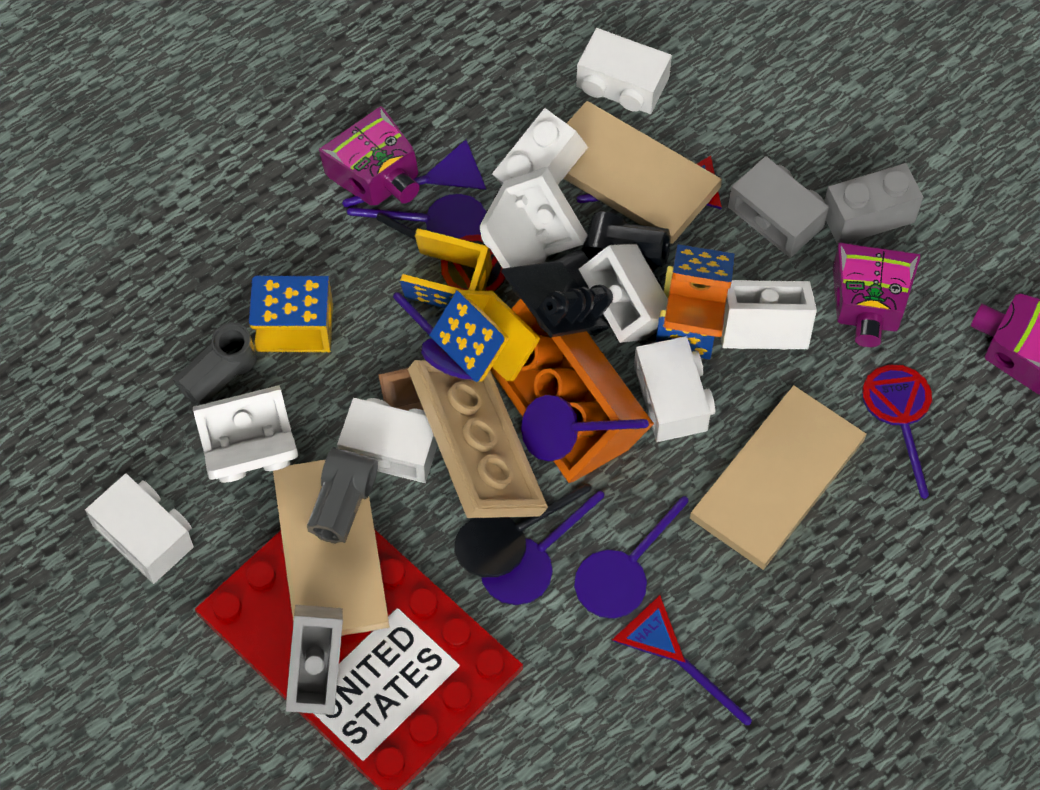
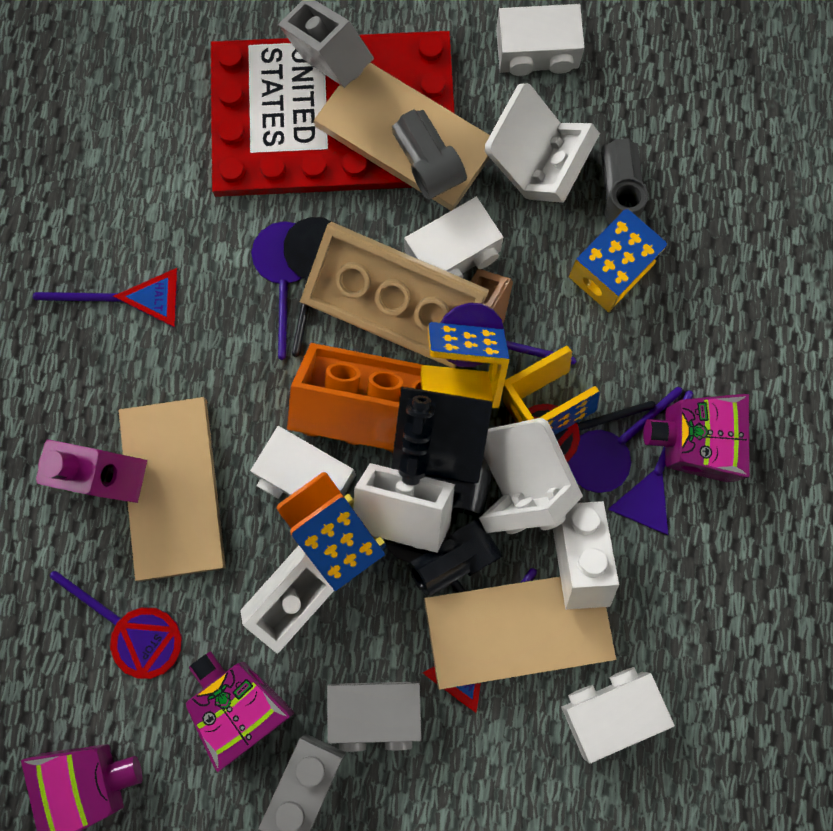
camera: 135 degrees right, 15 degrees up
(552, 427) = (347, 357): dark purple piece -> none
(613, 581) = (215, 306): dark purple piece -> none
(830, 521) = (80, 469): none -> magenta torso

